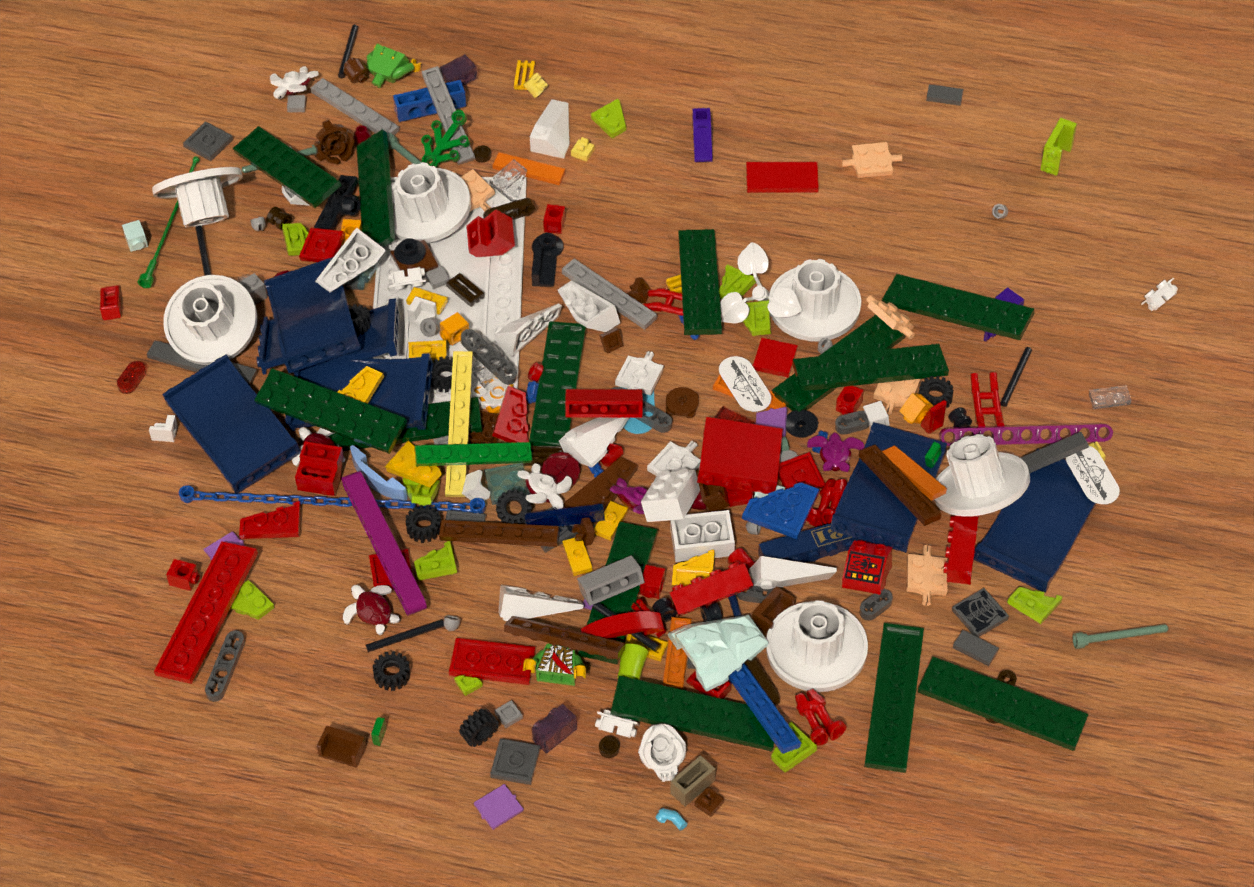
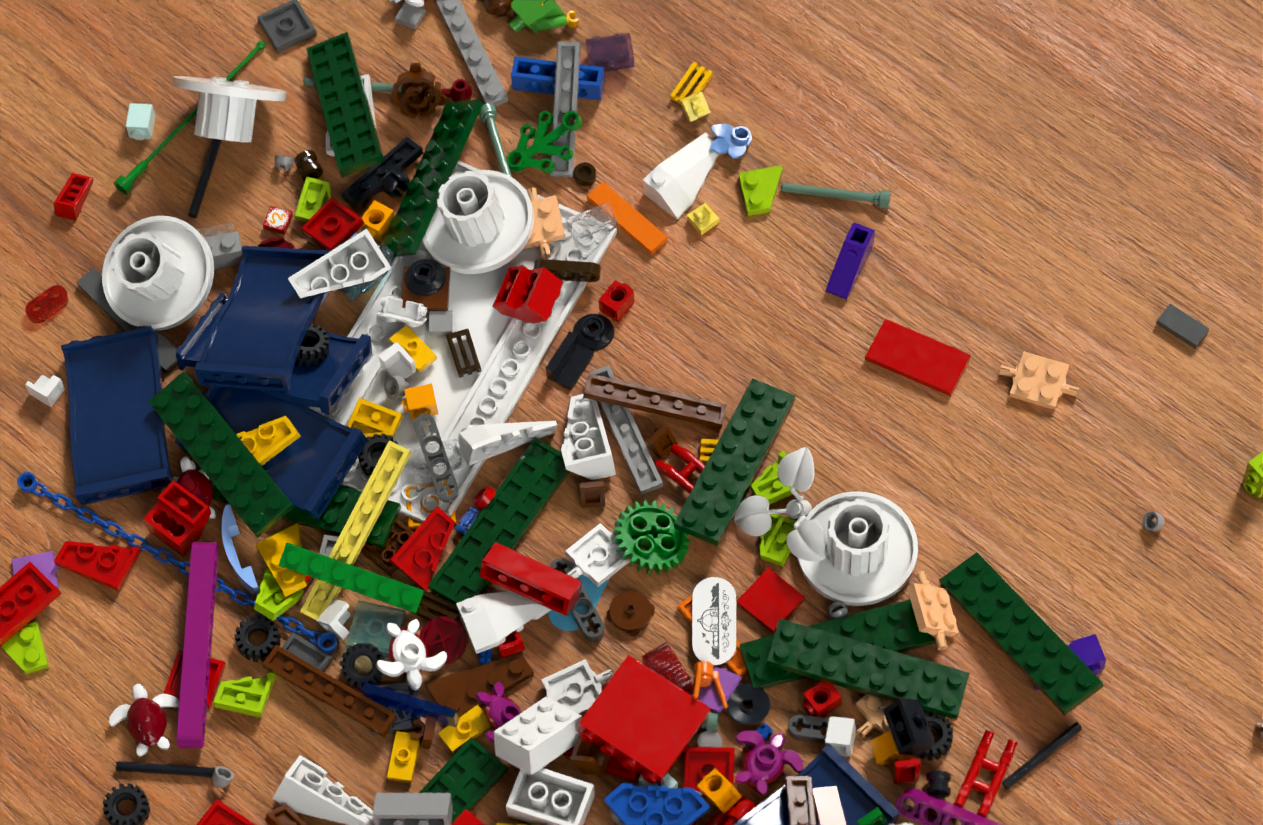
camera: 30 degrees right, 10 degrees up
(275, 261) = (277, 220): none -> tile
(573, 96) = (730, 140): none -> medium blue plate
(620, 266) = (654, 401): none -> reddish brown plate
(670, 349) = (650, 537): none -> green gear
(697, 94) = (881, 198): none -> sand green piece
(761, 417) = (703, 676): none -> orange plant
(819, 478) = (719, 791): none -> light orange brick
(923, 386) = (909, 727): none -> black brick

